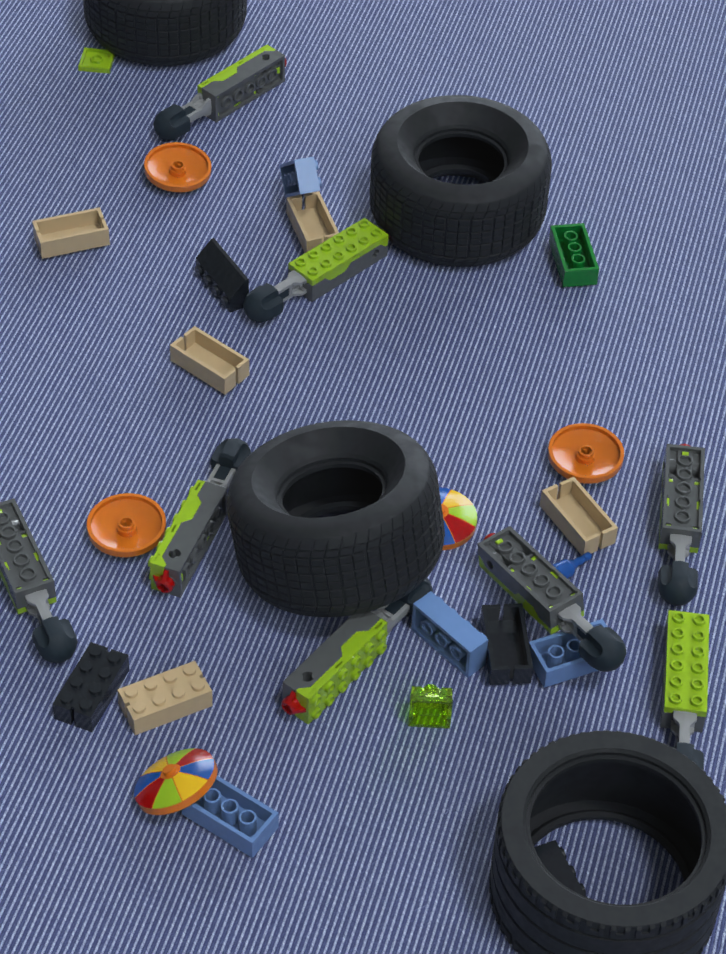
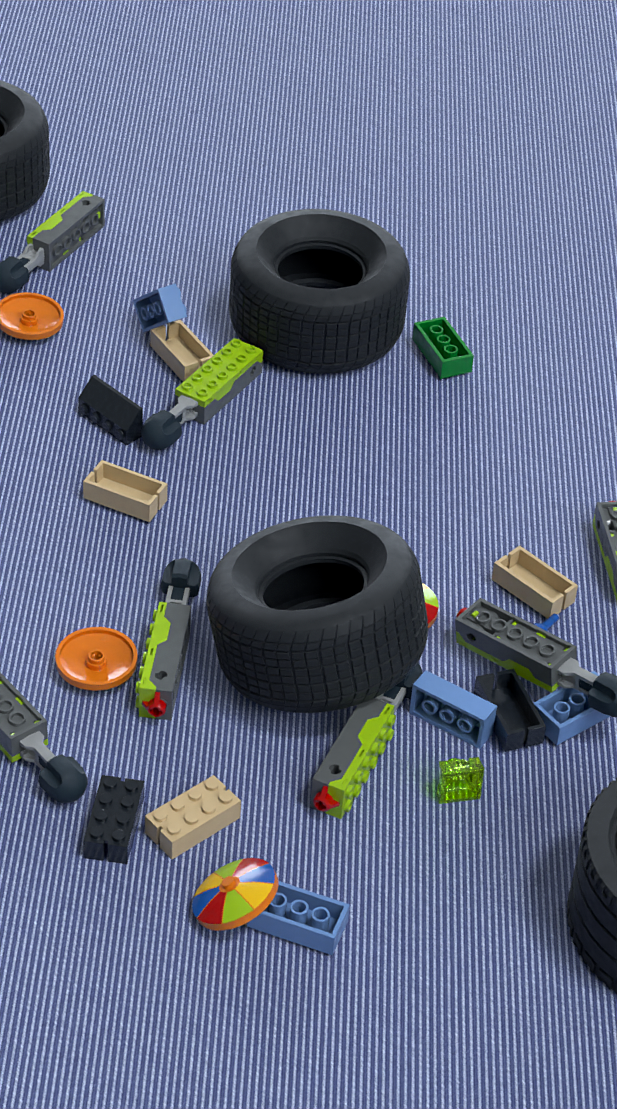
camera: 15 degrees left, 5 degrees down
(586, 453) = (520, 522): orange dish -> none

